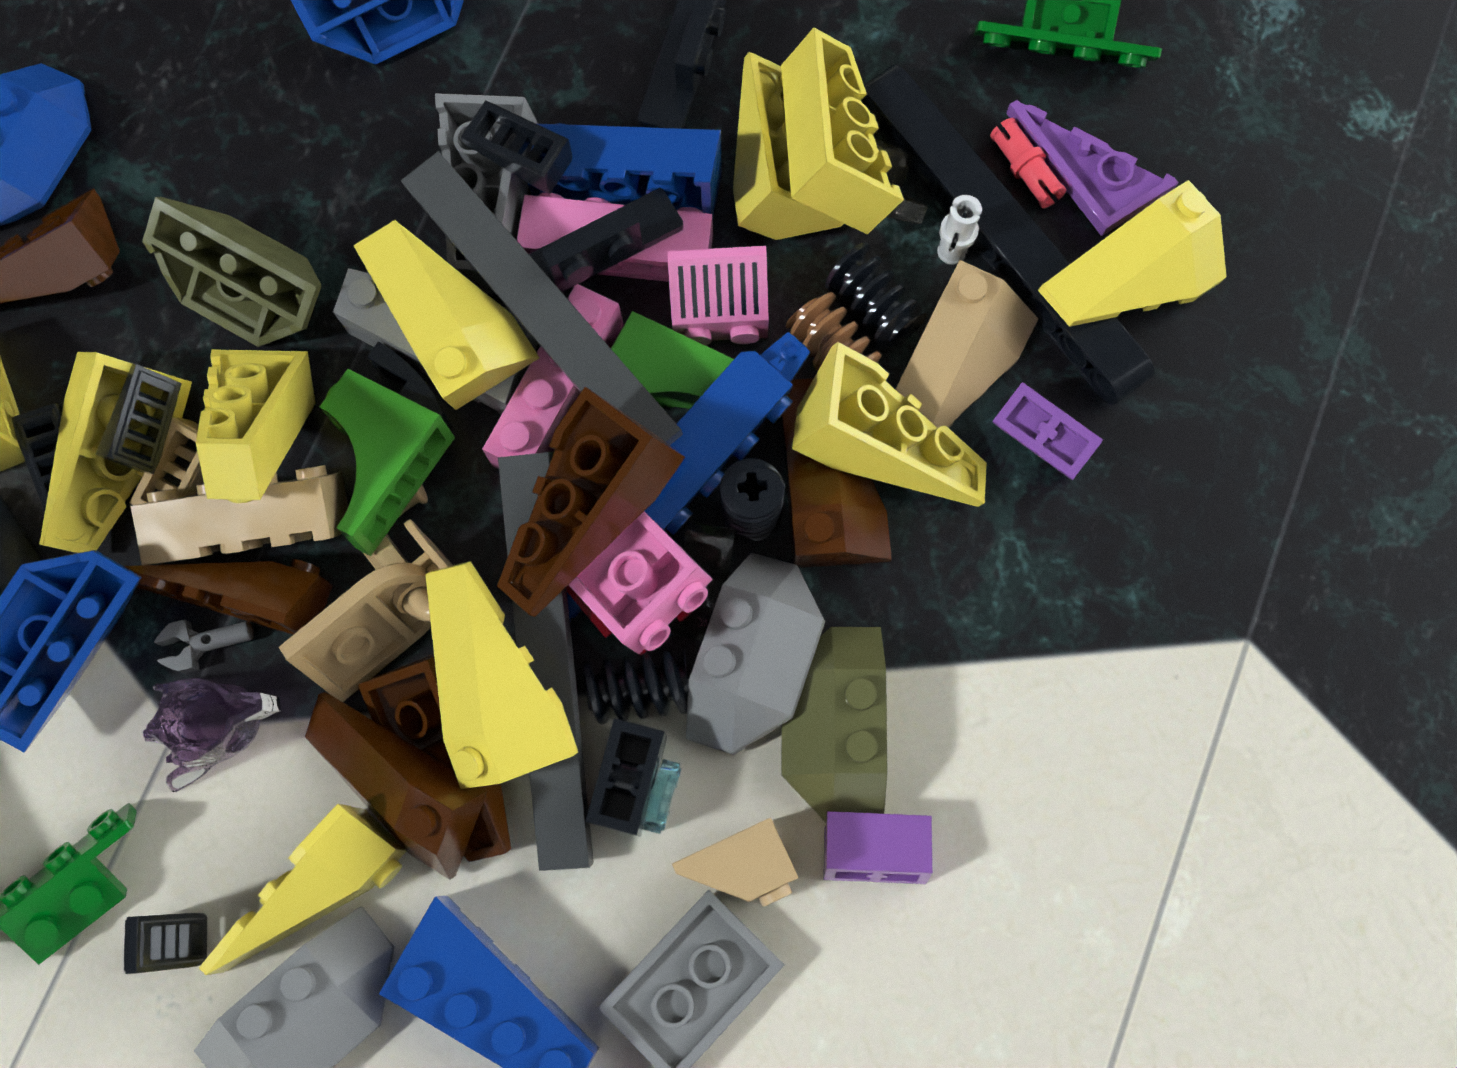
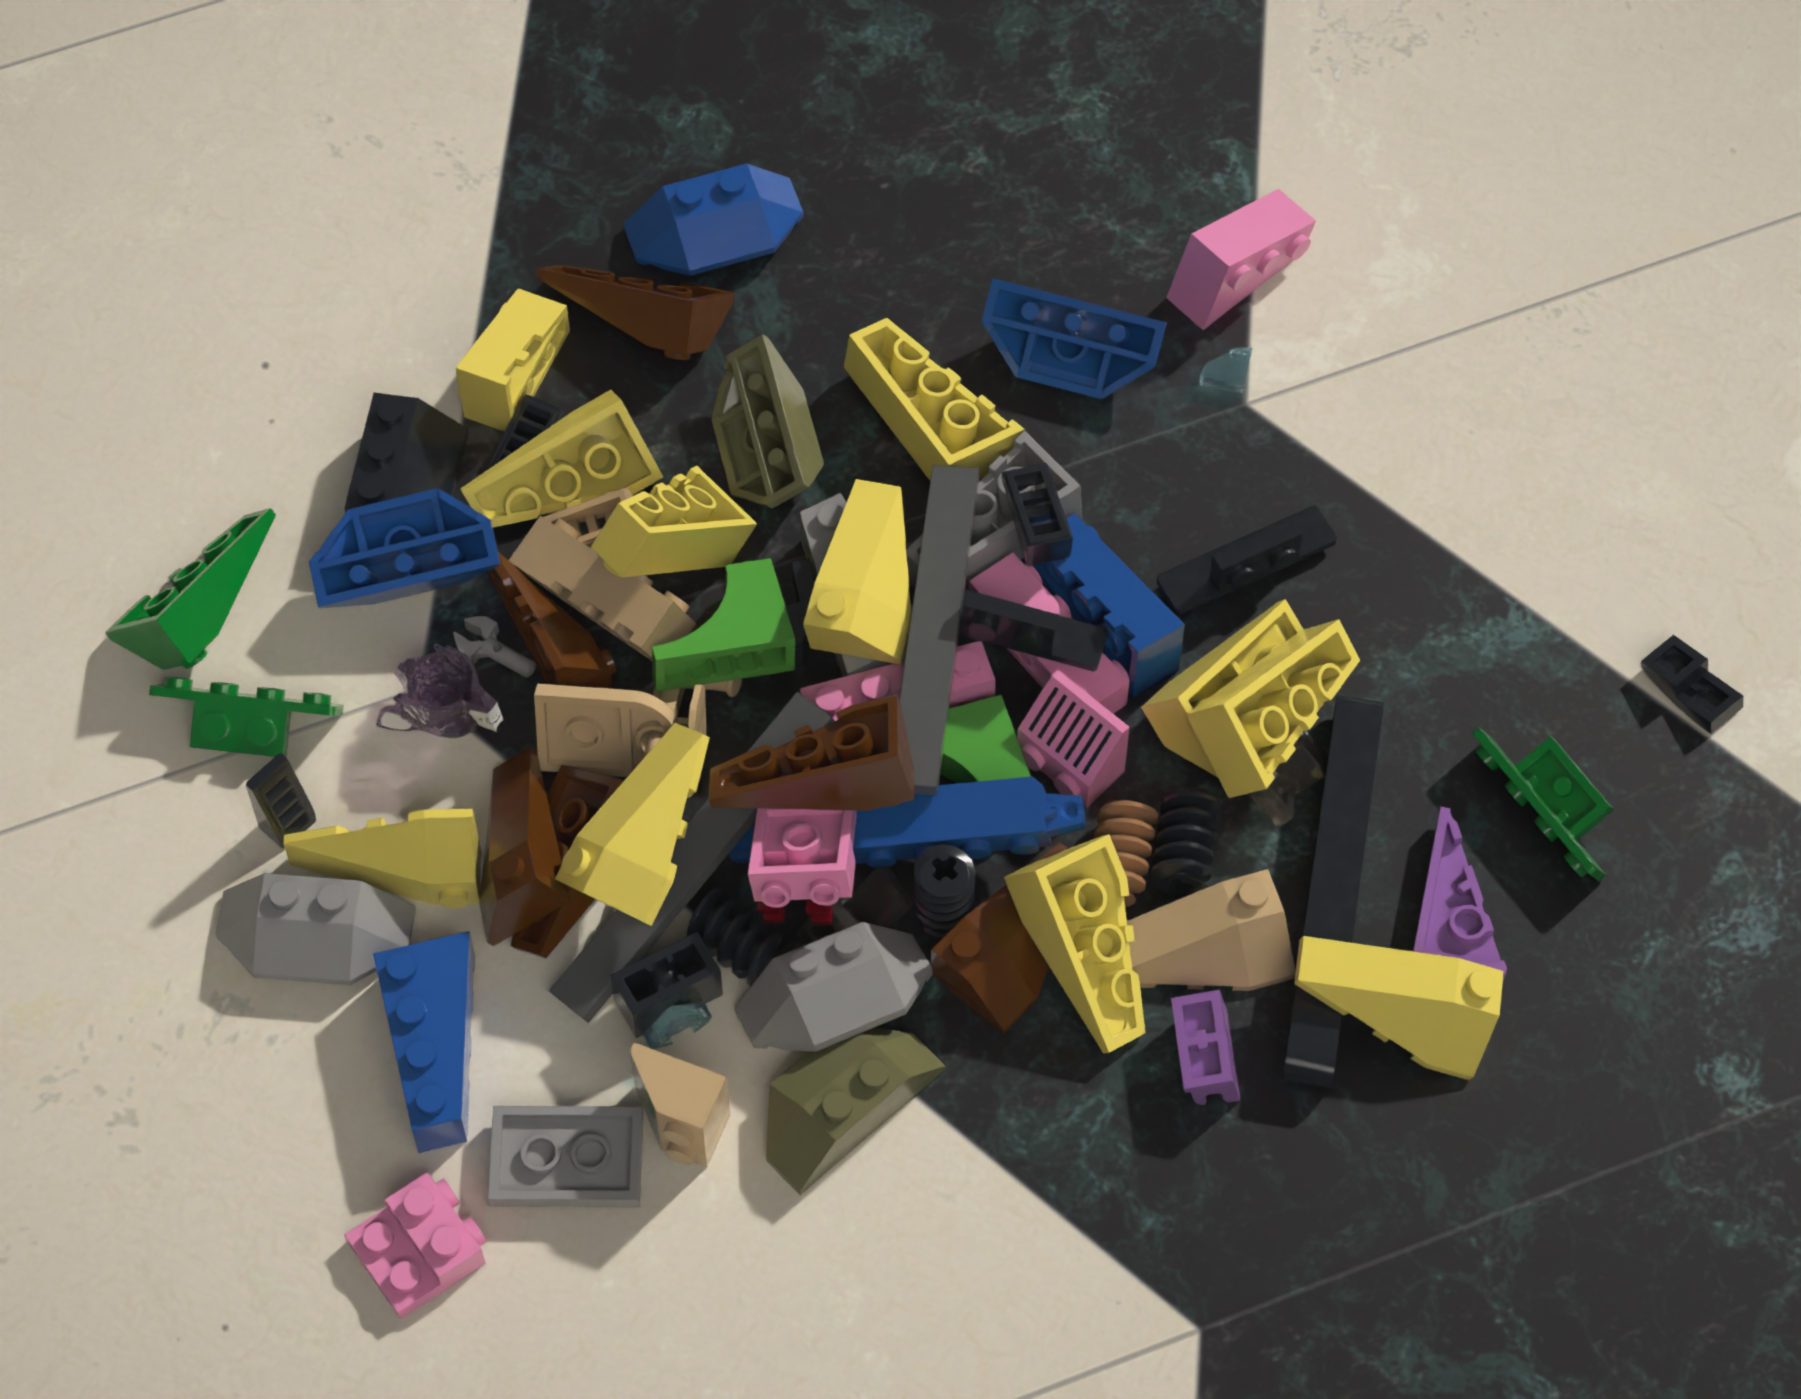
camera: 45 degrees right, 15 degrees down
(117, 429) = (582, 461): black slope -> none
(336, 140) = (925, 403): none -> light yellow wedge
(877, 848) = (780, 1194): medium lavender hinge -> none
(959, 229) = (1293, 851): white pin -> none
(1028, 162) = (1410, 861): coral pin -> none

